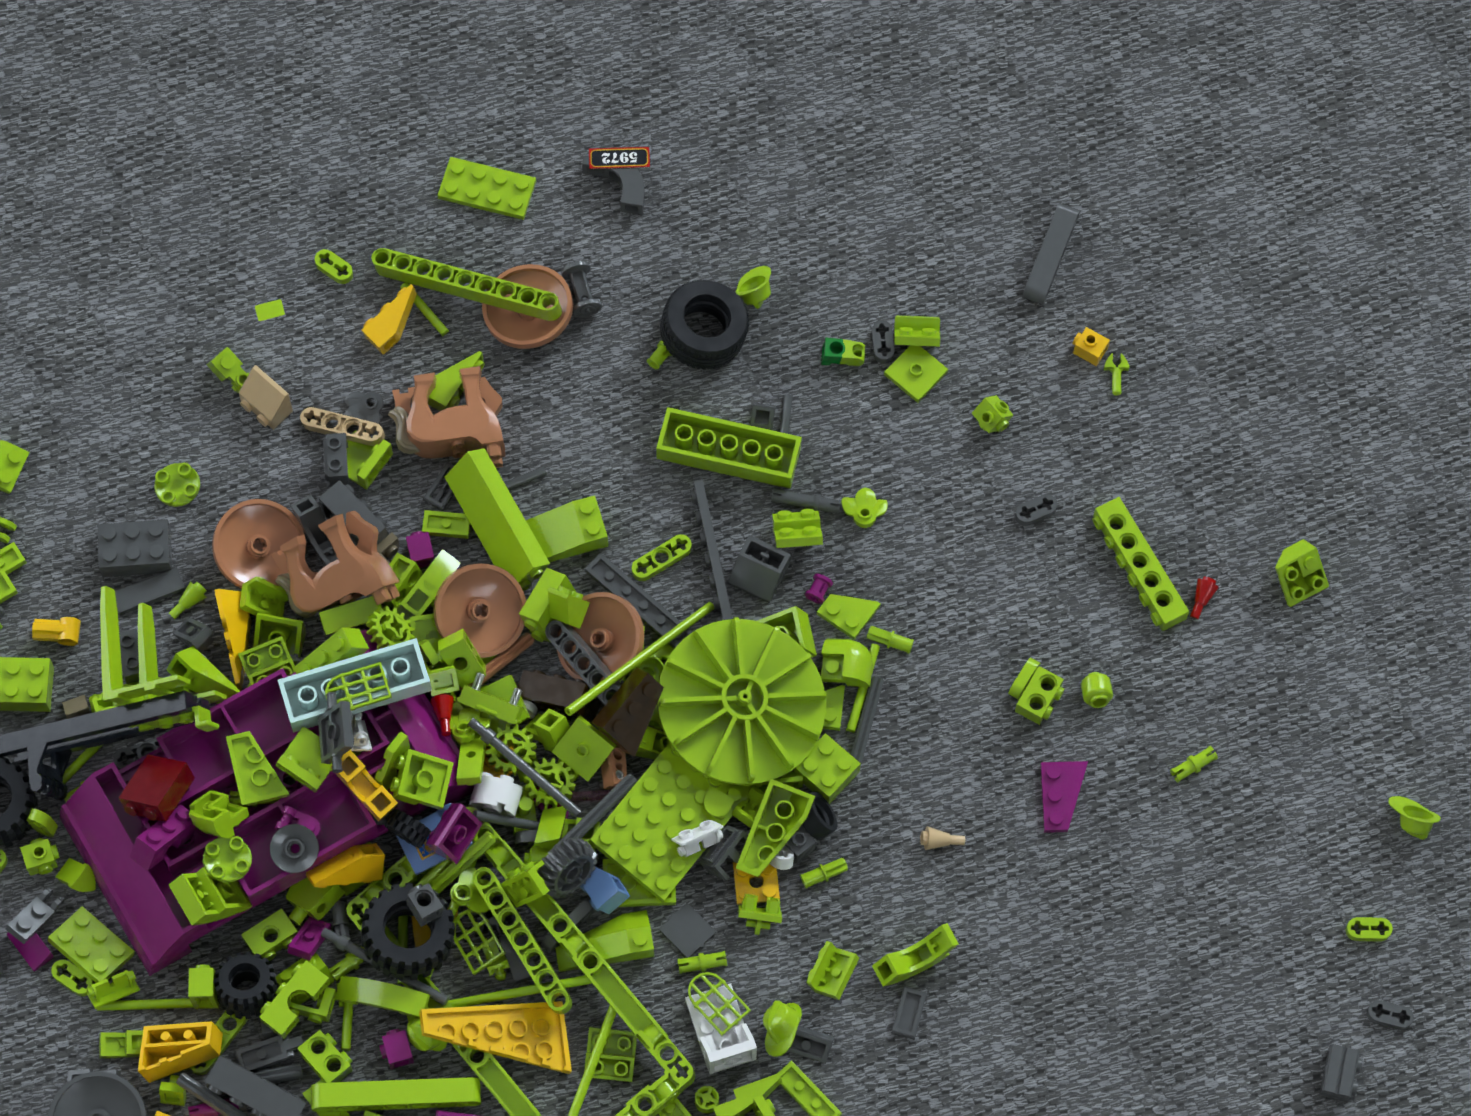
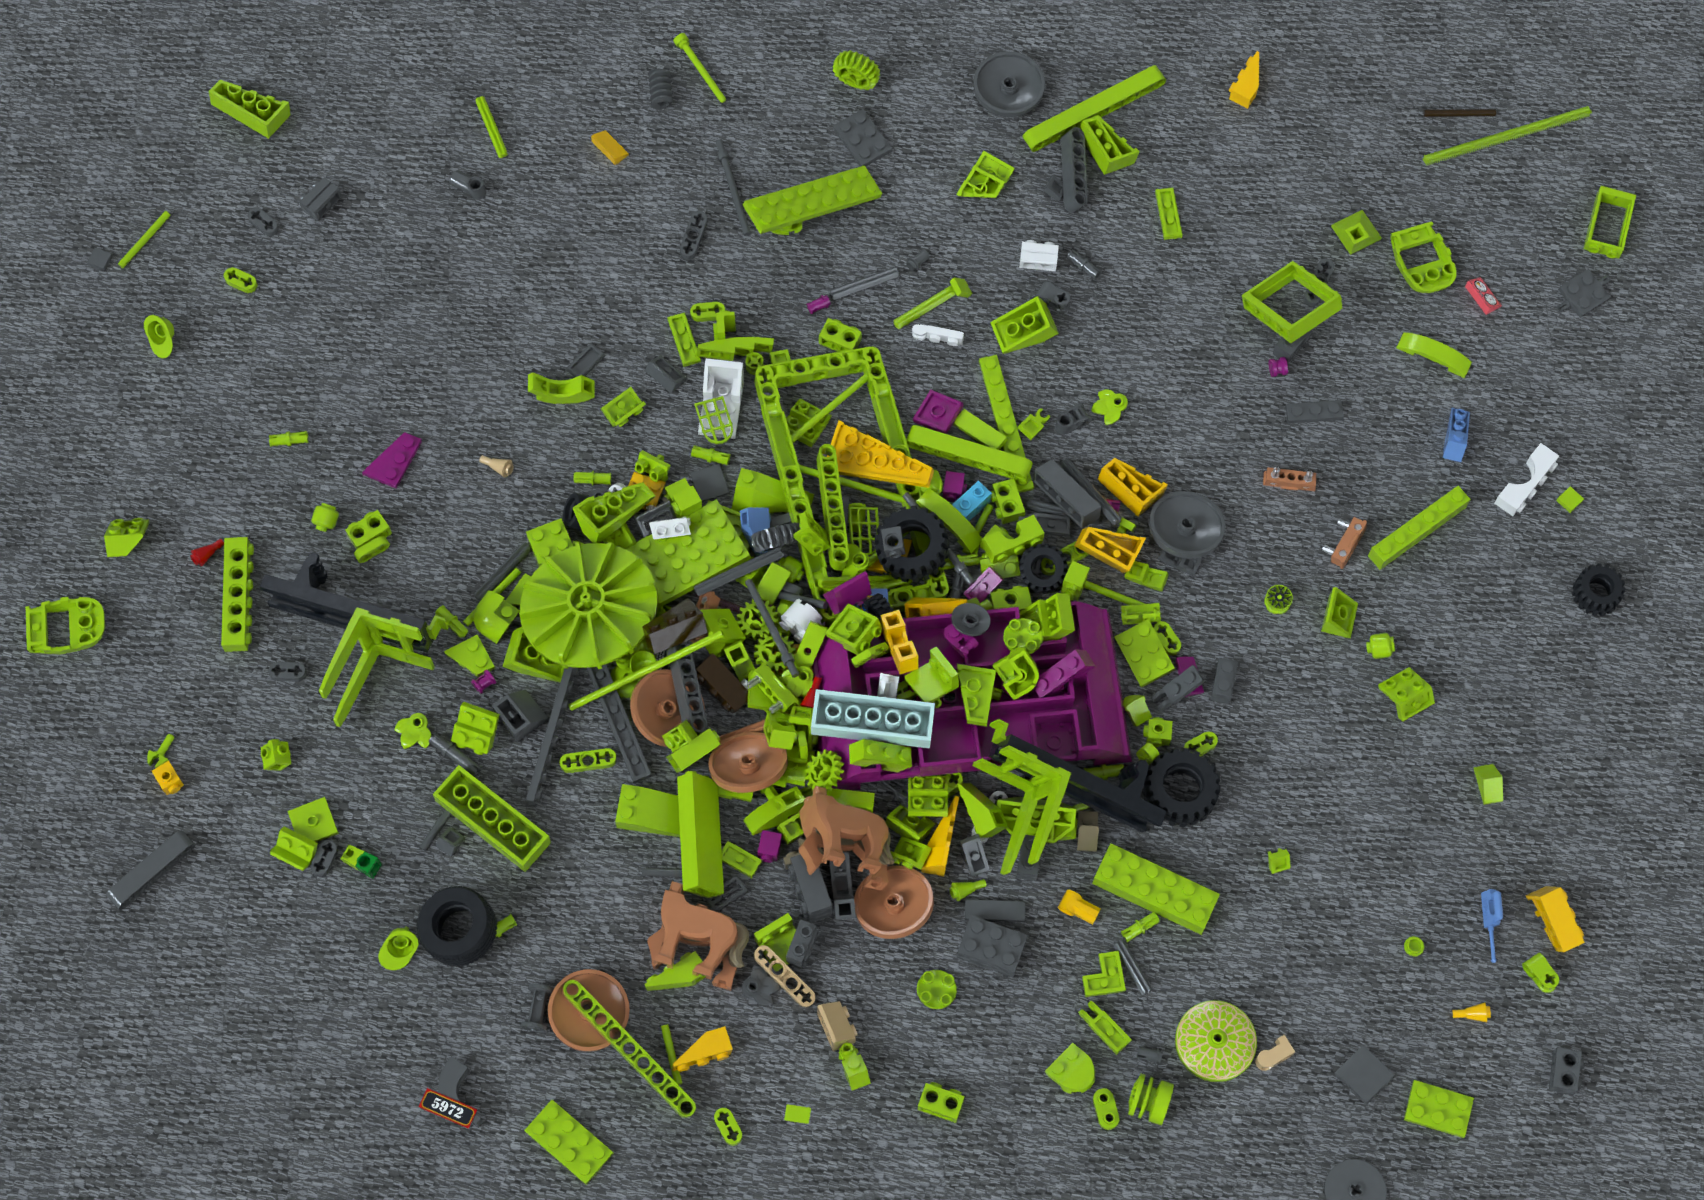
camera: 155 degrees left, 0 degrees up
(125, 369) = (939, 1107): none -> lime brick
(156, 788) = (1055, 706): dark red brick -> none
(335, 732) = (905, 675): dark grey plate -> none
(345, 685) = (880, 712): lime window -> none
(367, 1035) = (973, 500): none -> medium azure brick
(701, 887) = (683, 498): none -> lime brick
(717, 802) = (643, 549): lime piece -> none
(781, 1025) = (678, 385): lime piece -> none
(963, 577) = (362, 623): none -> piece
(1281, 464) = (85, 625): none -> lime slope

